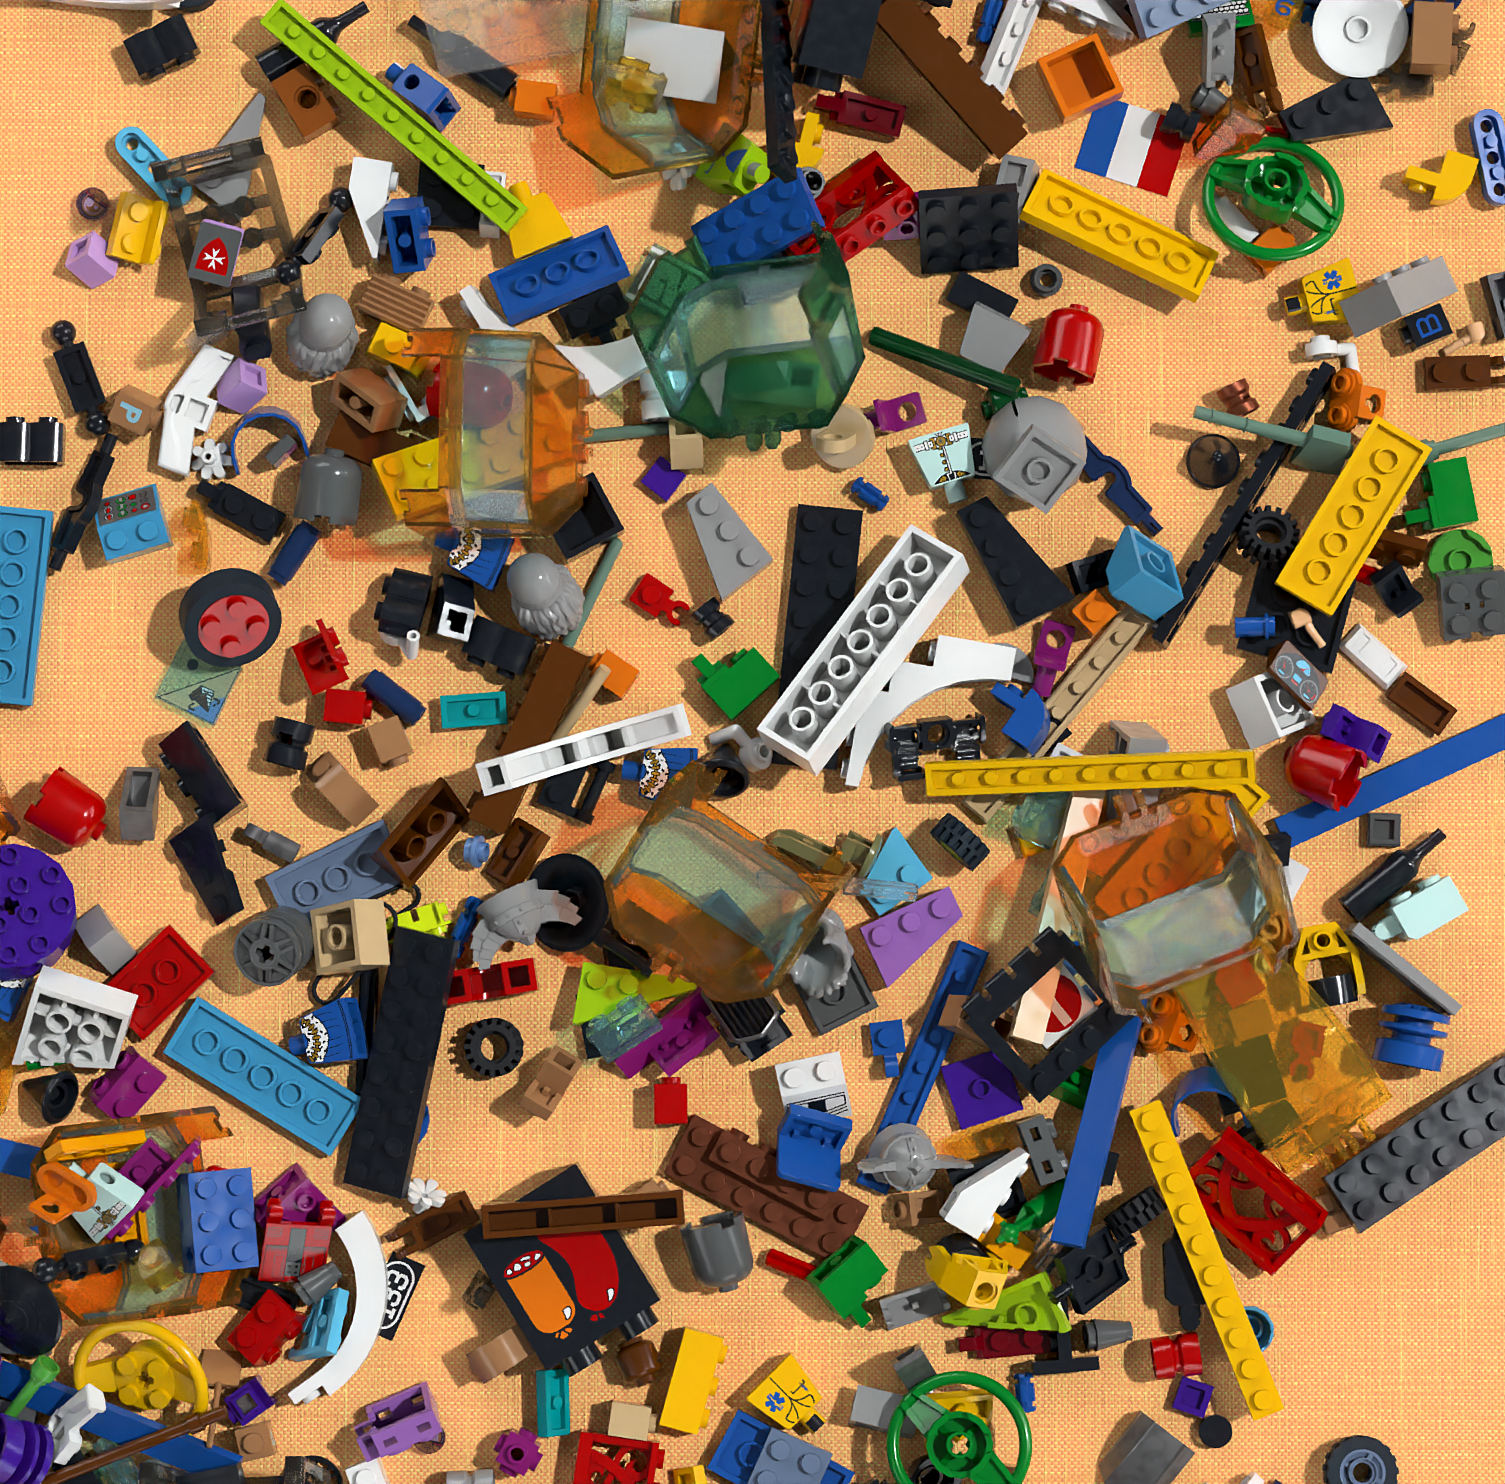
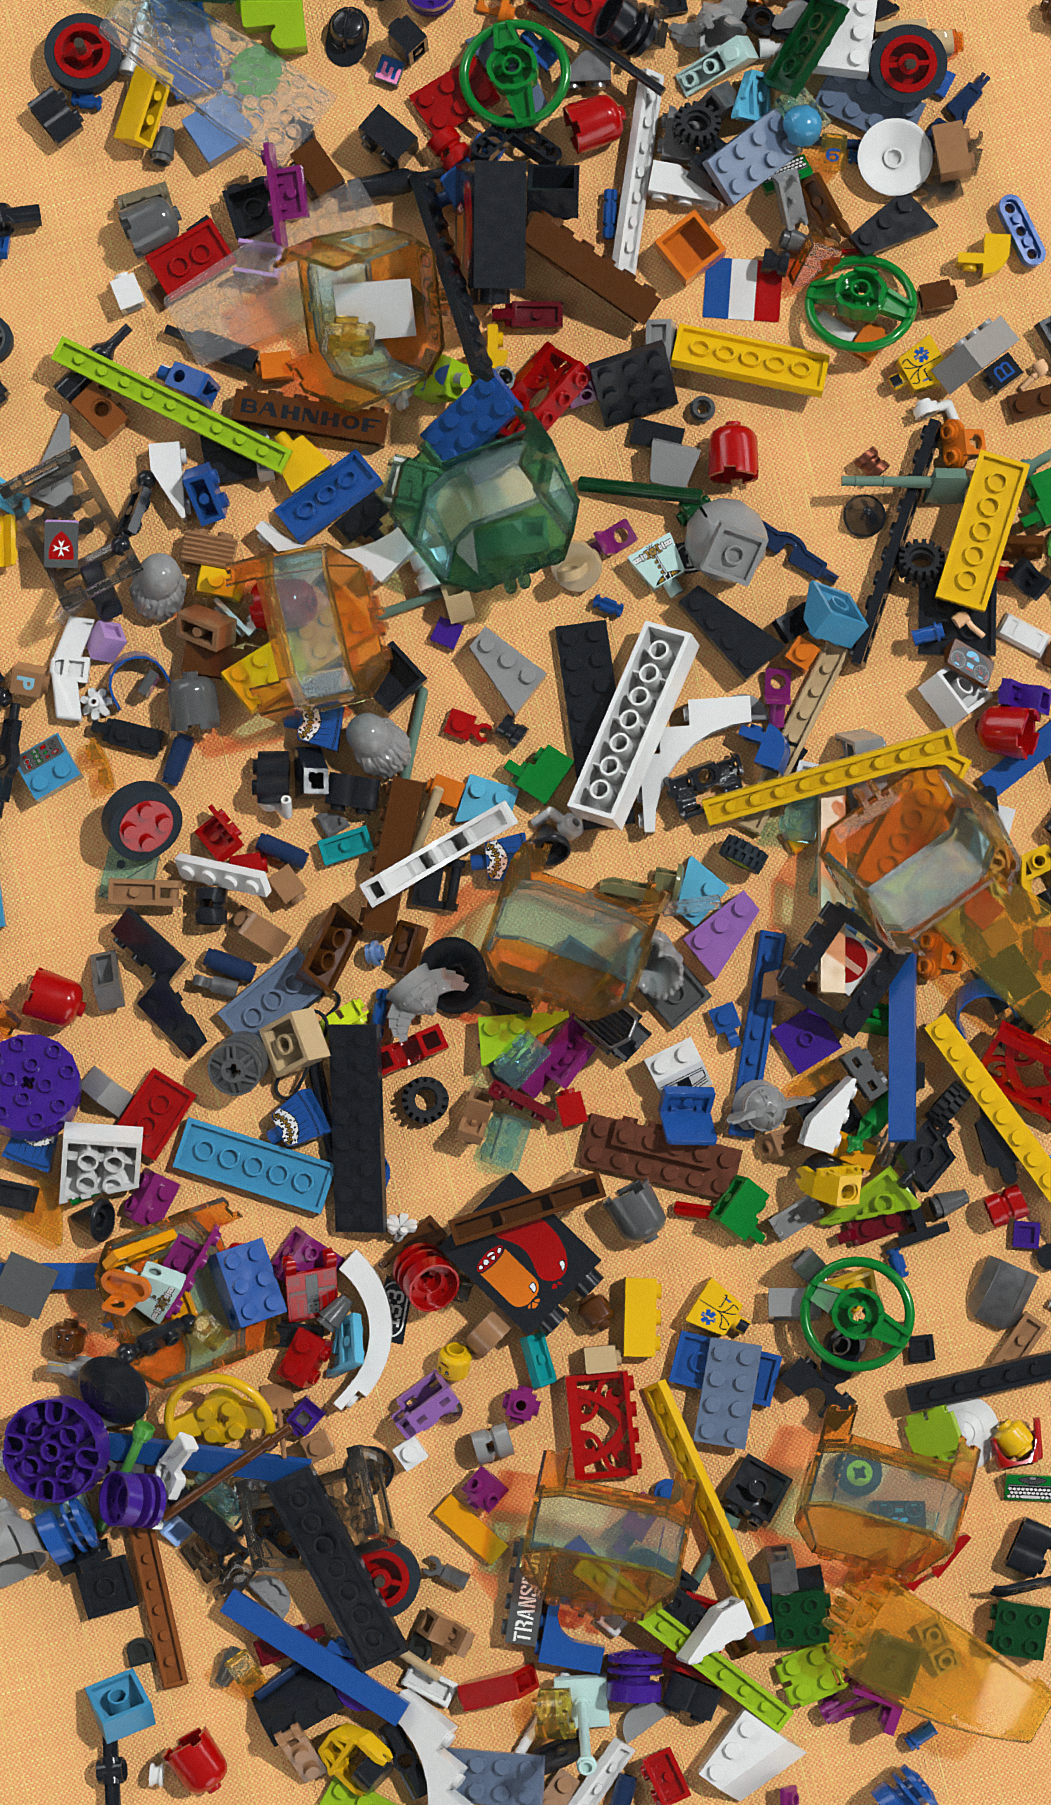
camera: 10 degrees left, 0 degrees up
(210, 706) = (143, 892): none -> medium nougat plate
(295, 821) = (229, 965): none -> dark blue piece
(313, 709) = (223, 875): none -> white plate
(439, 1266) = (425, 1277): none -> red wheel
(448, 1379) = (454, 1362): none -> yellow head
(464, 678) = (332, 823): none -> flat silver tile
(560, 172) = (309, 417): none -> reddish brown brick
(579, 1122) = (505, 1140): none -> clear light blue bracket
(588, 1060) = (519, 1101): none -> dark red hinge
(657, 690) = (483, 795): none -> medium azure wing
(1369, 213) = (936, 296): none -> reddish brown brick

